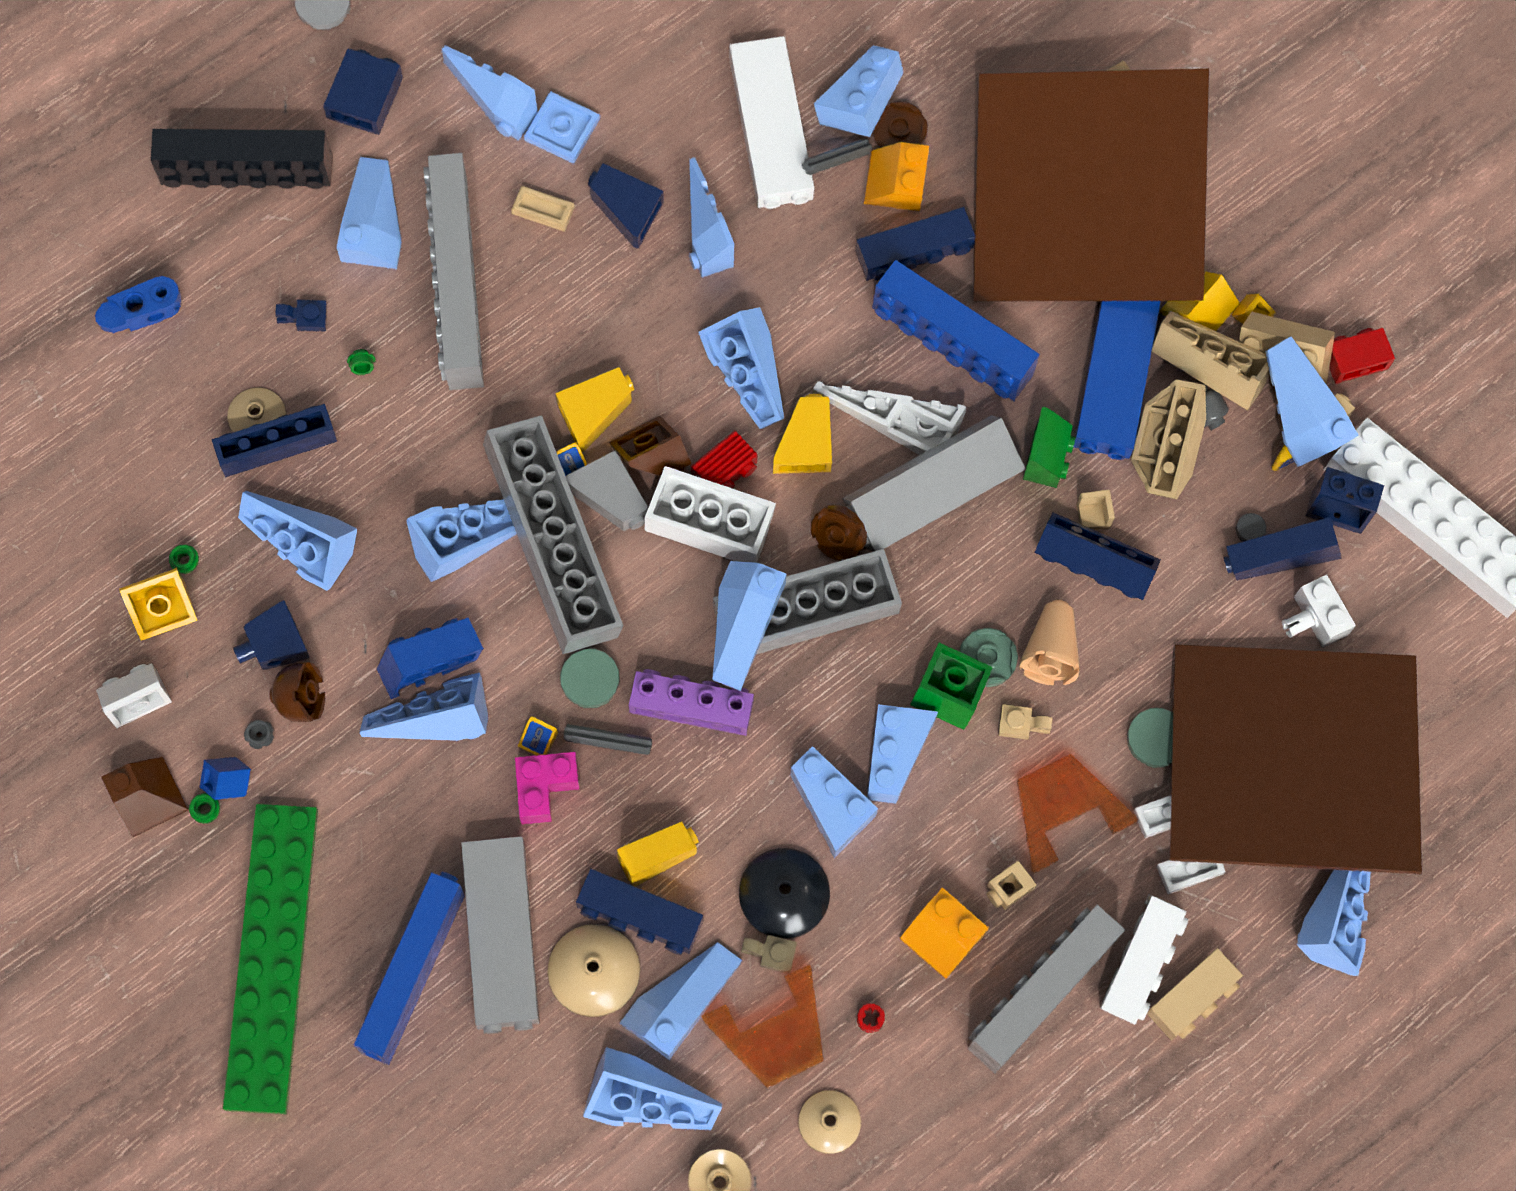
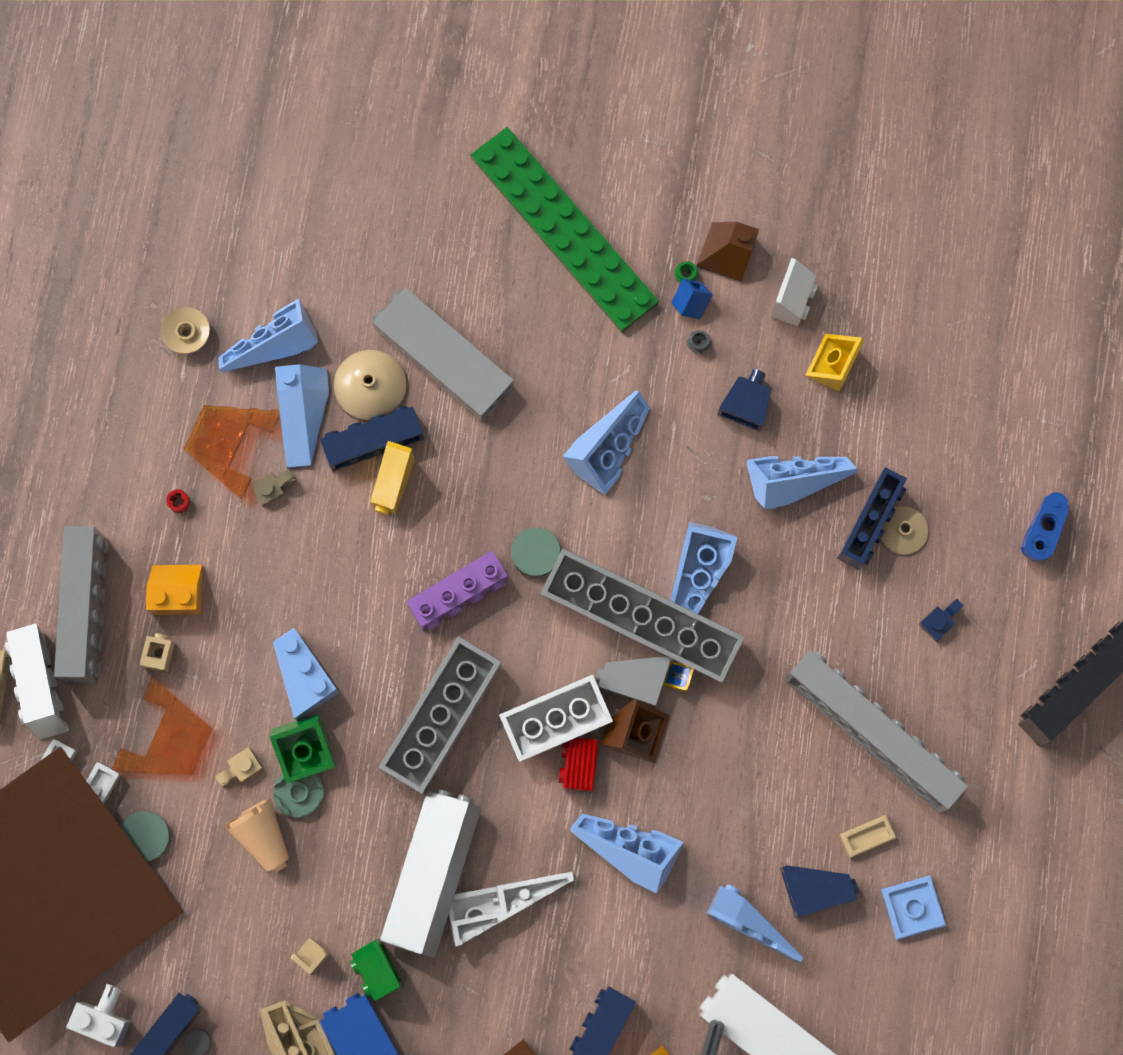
camera: 140 degrees right, 5 degrees up
(180, 551) = (854, 395): green plate -> none
(297, 692) = (697, 381): reddish brown cylinder -> none
(361, 362) = (874, 621): green plate -> none
(363, 91) = (1064, 807): dark blue brick -> none
(370, 220) = (969, 724): light blue wedge -> none
(410, 967) = (473, 285): blue brick -> none
(428, 654) = (643, 475): blue wedge -> none
(502, 98) = (966, 883): light blue wedge -> none
(537, 737) = (532, 487): slope -> none
(538, 777) = (506, 460): dark pink brick -> none
(594, 405) = (700, 727): yellow slope -> none
(607, 739) = (489, 524): dark grey axle -> none
(743, 614) = (470, 666): light blue wedge -> none
(778, 913) = (301, 545): black dish -> none
(807, 438) = (544, 832): yellow slope -> none
(829, 1138) = (160, 430): tan dish -> none
(832, 800) = (314, 607): light blue wedge -> none
(838, 532) = (463, 782): reddish brown tile -> none
(954, 331) = (511, 997): blue brick -> none
(1097, 556) = (281, 923): dark blue brick -> none

